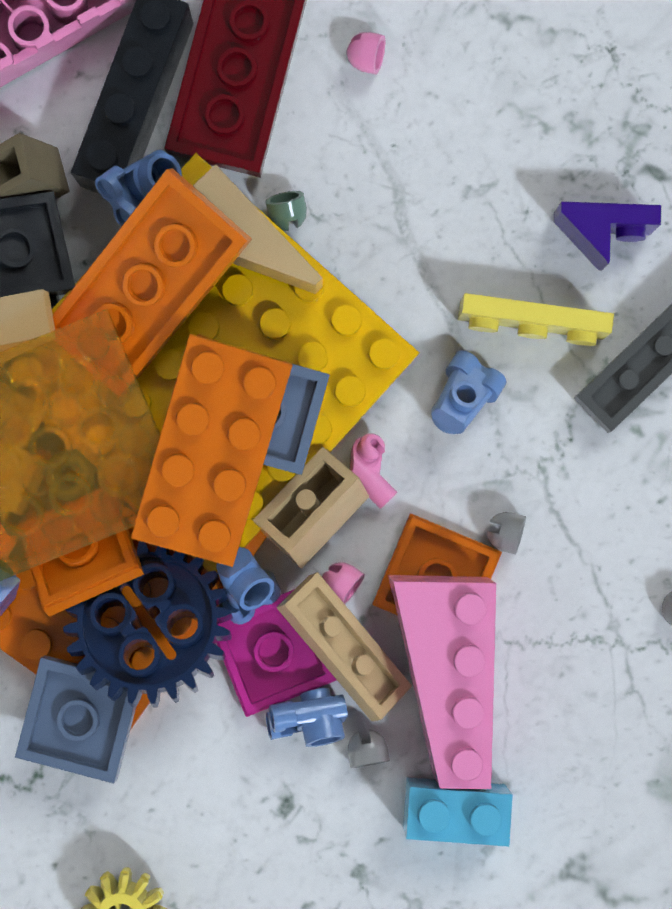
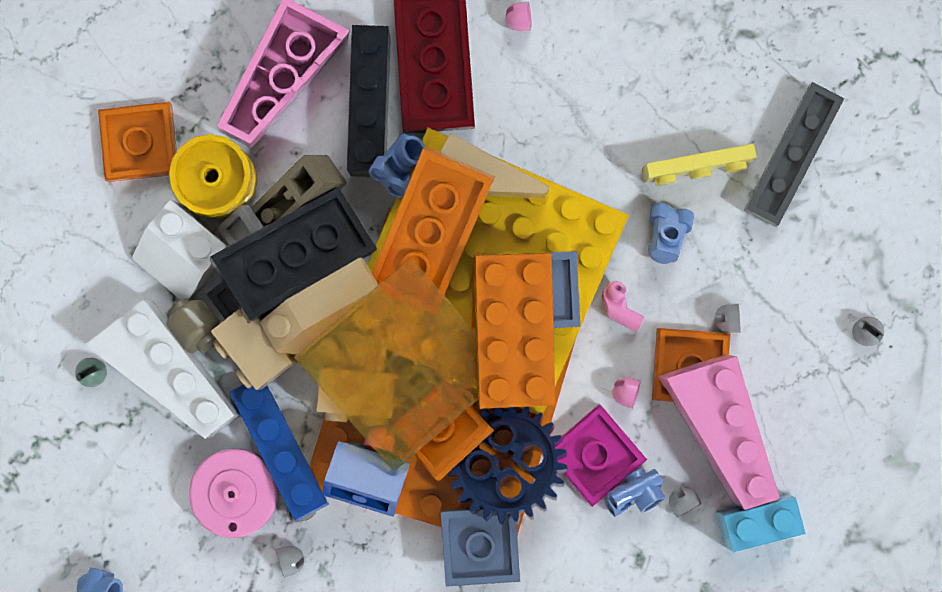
camera: 15 degrees left, 0 degrees up
(247, 586) = (566, 416): medium blue plate -> none
(286, 208) = (500, 144): sand green hinge -> none
(312, 507) = (590, 347): tan brick -> none
(344, 647) = (645, 435): tan plate -> none
(592, 224) = (717, 86): dark purple slope -> none

